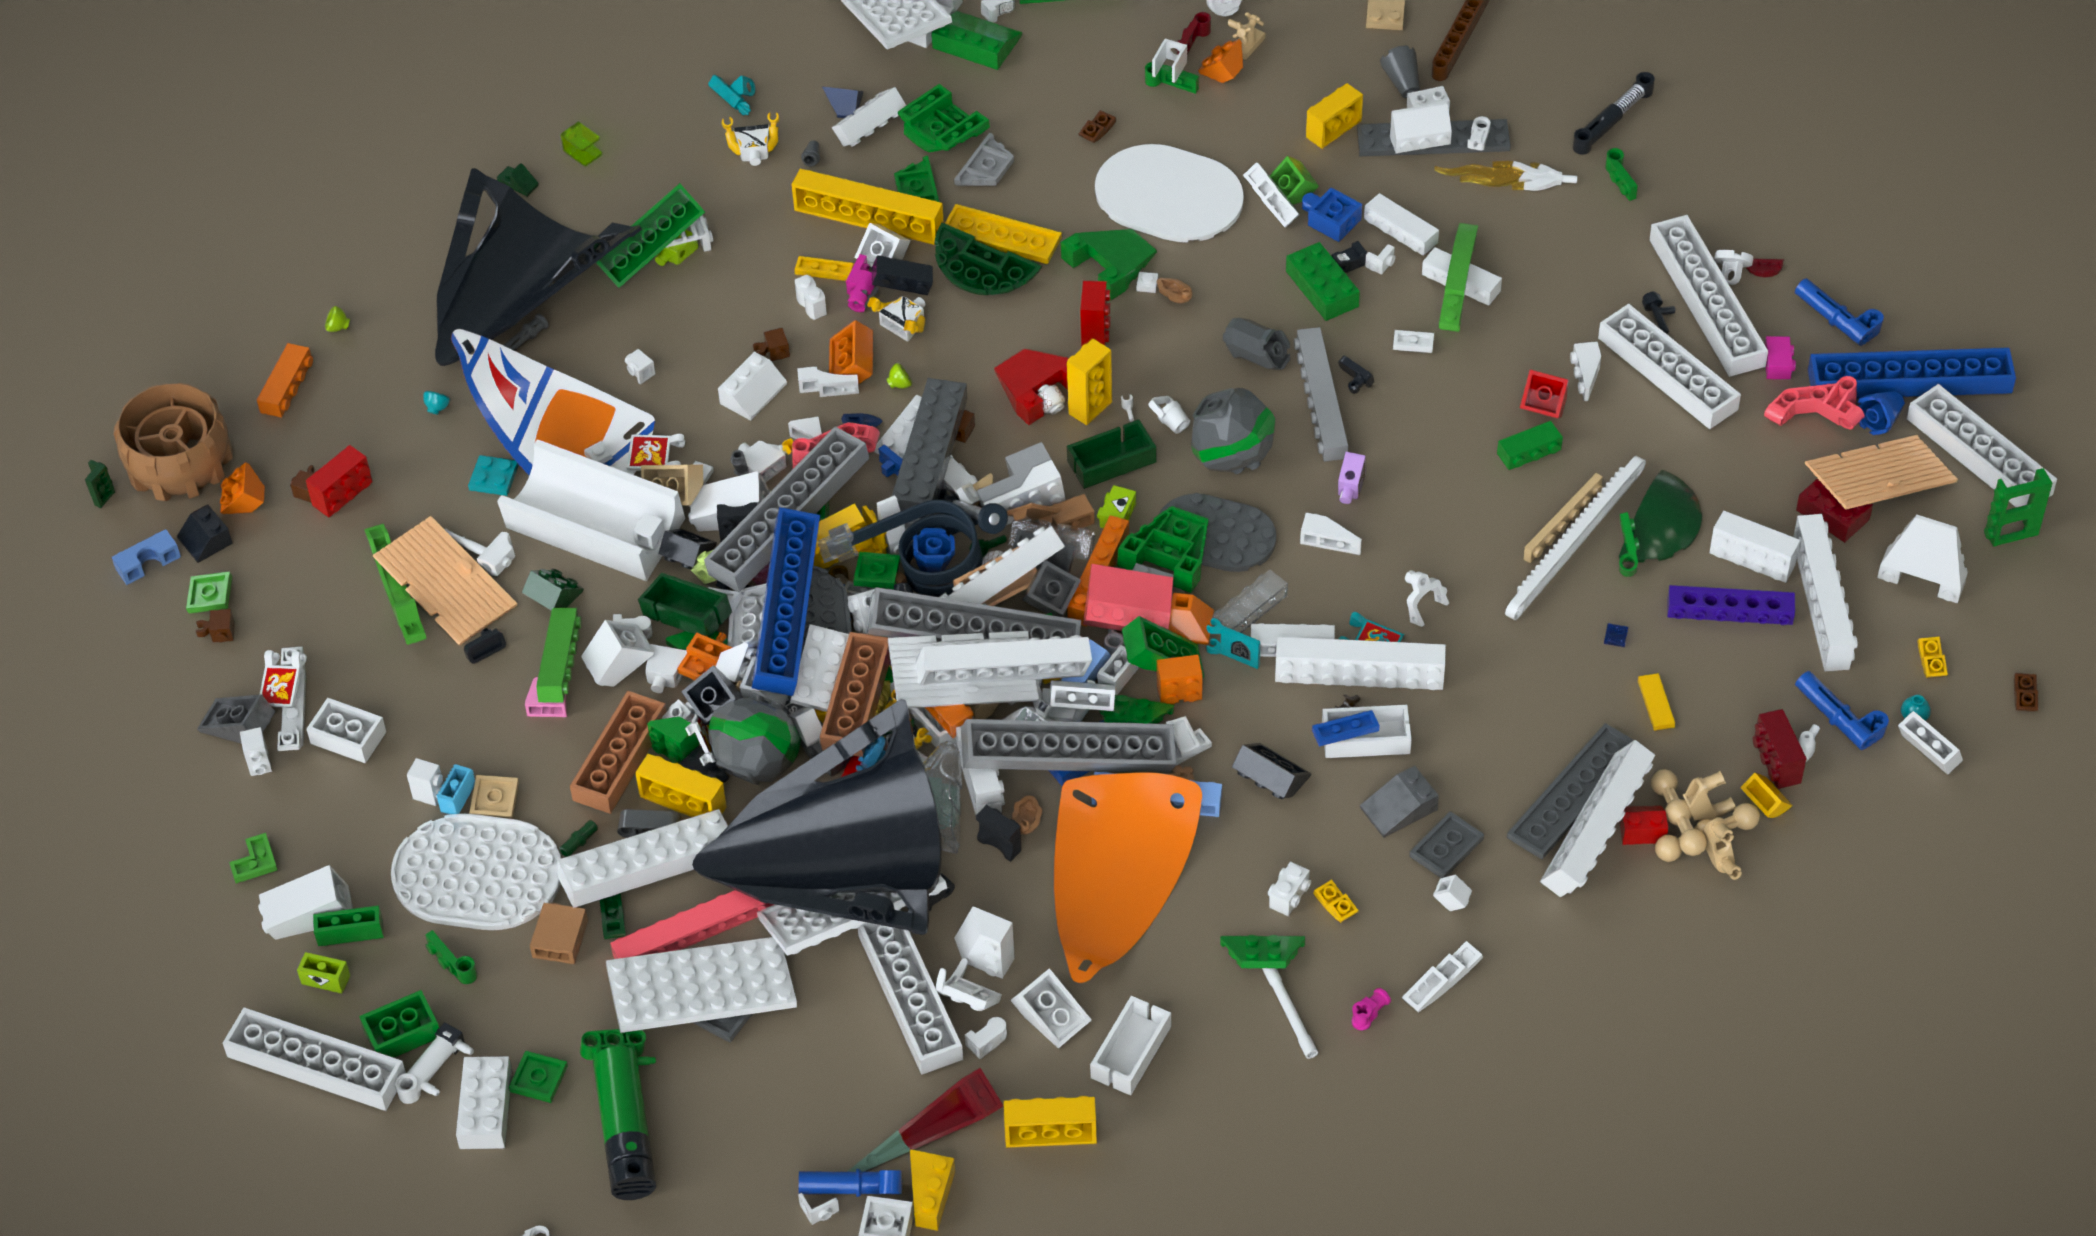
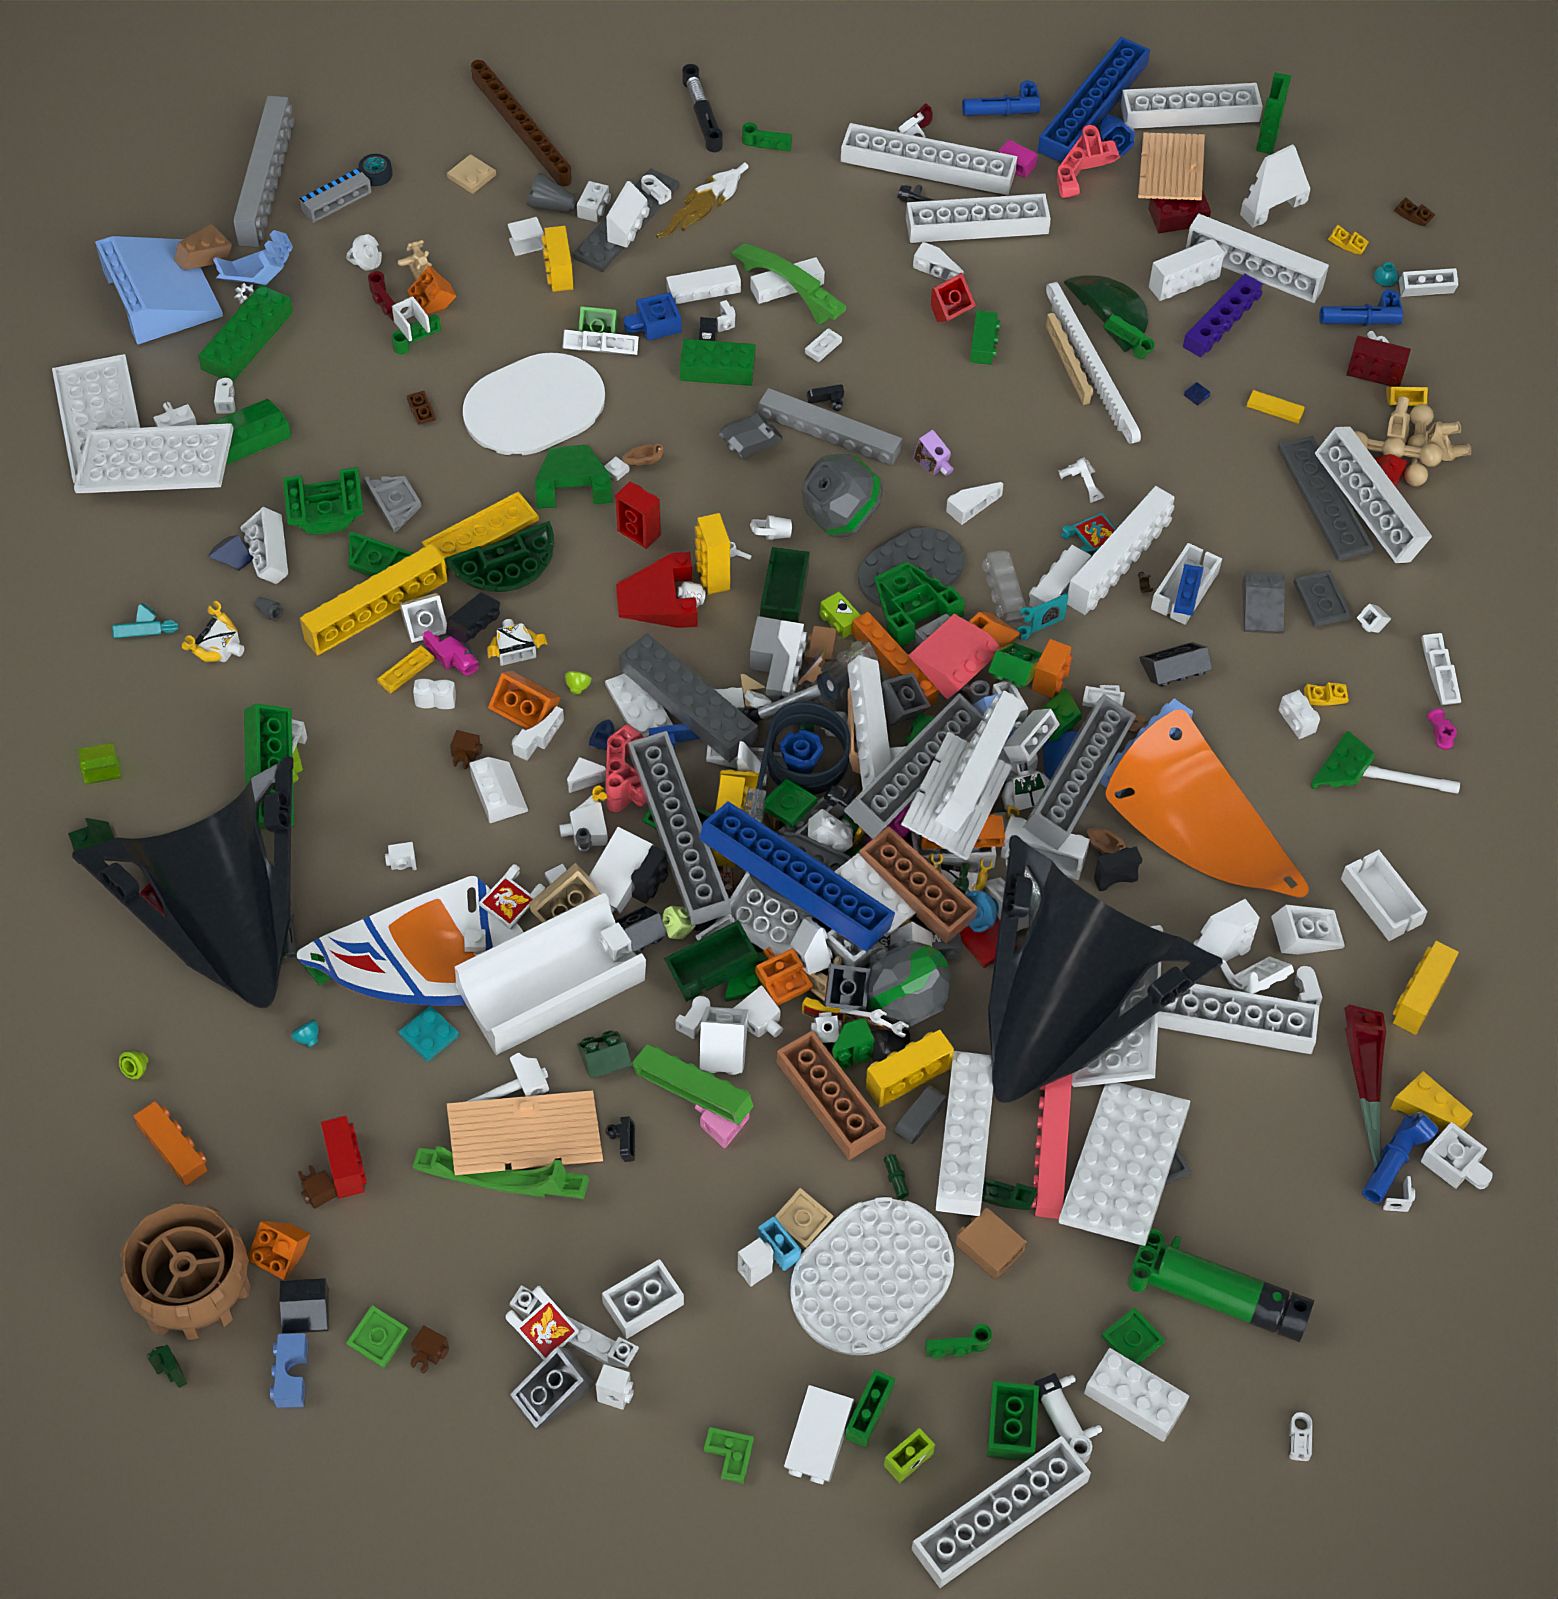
camera: 60 degrees left, 5 degrees up
(1340, 75) = (526, 236): none -> white piece

